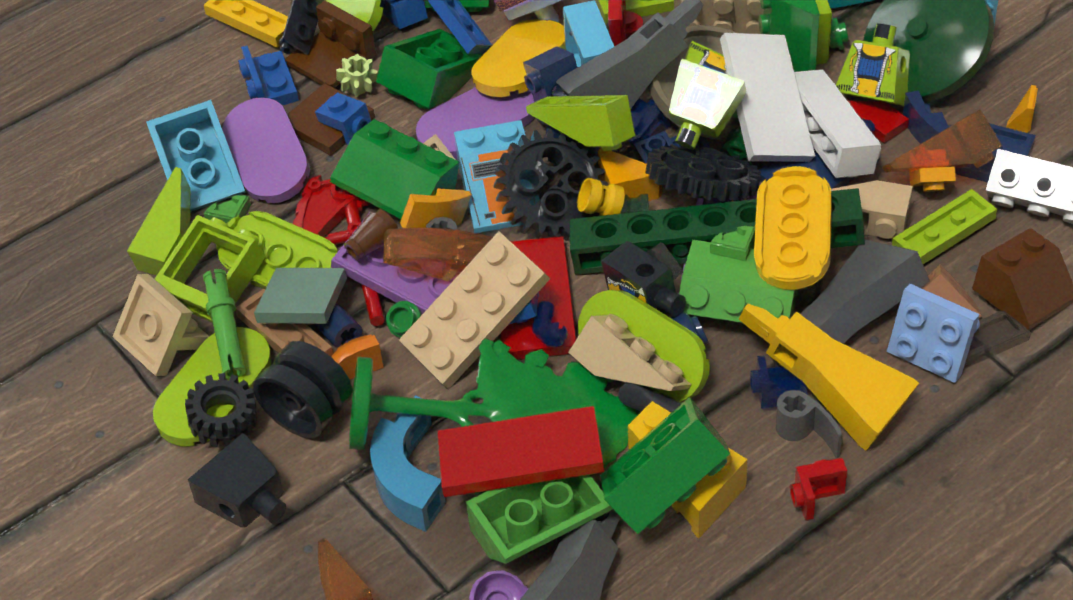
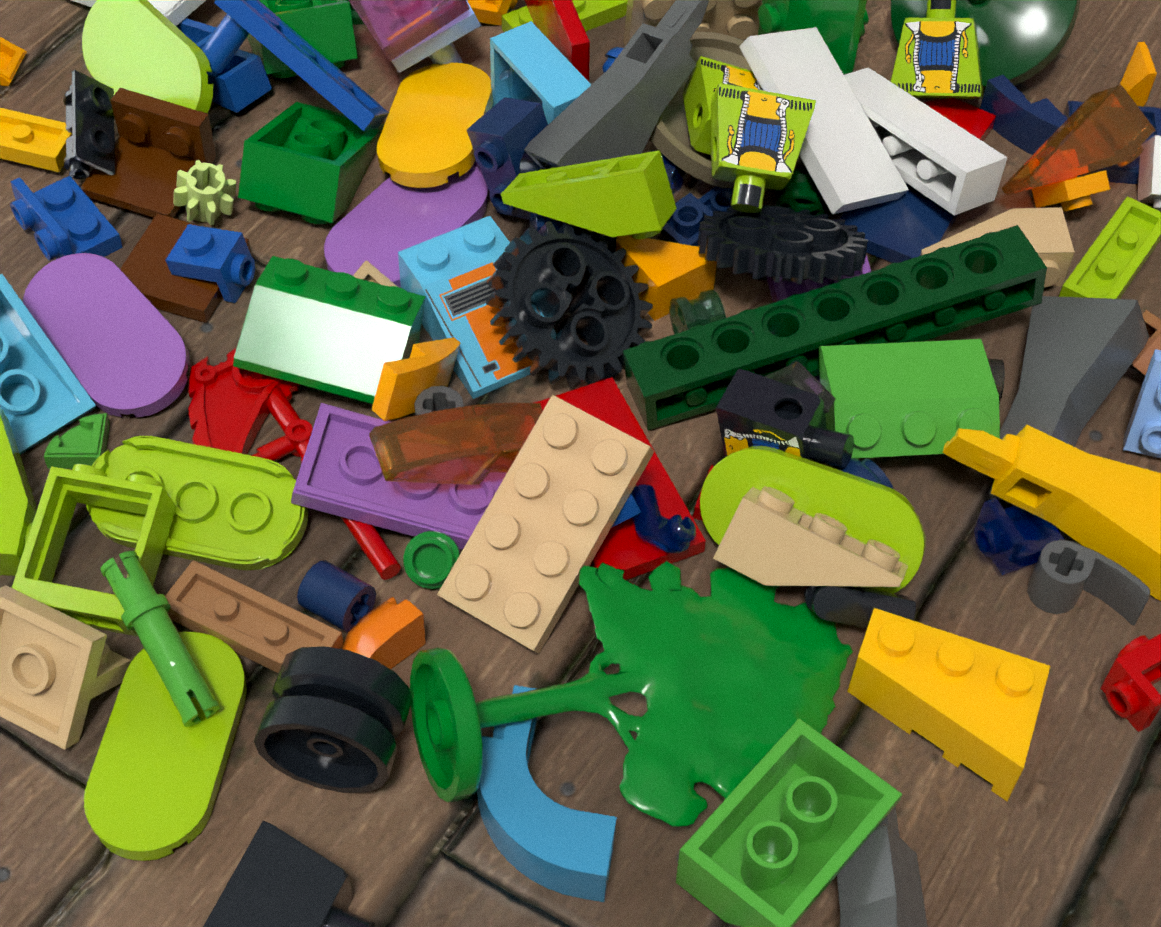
camera: 25 degrees left, 5 degrees up
(215, 393) = (202, 753): black tyre -> none
(300, 295) = (264, 561): sand green tile -> none
(369, 234) = (344, 439): reddish brown cone -> none
(519, 451) = (727, 744): red tile -> none
(600, 198) = (654, 310): yellow wheel -> none
(664, 467) = (954, 710): green slope -> none
(734, 244) = (886, 340): bright green tile -> none
(793, 228) = (961, 302): yellow tile -> none

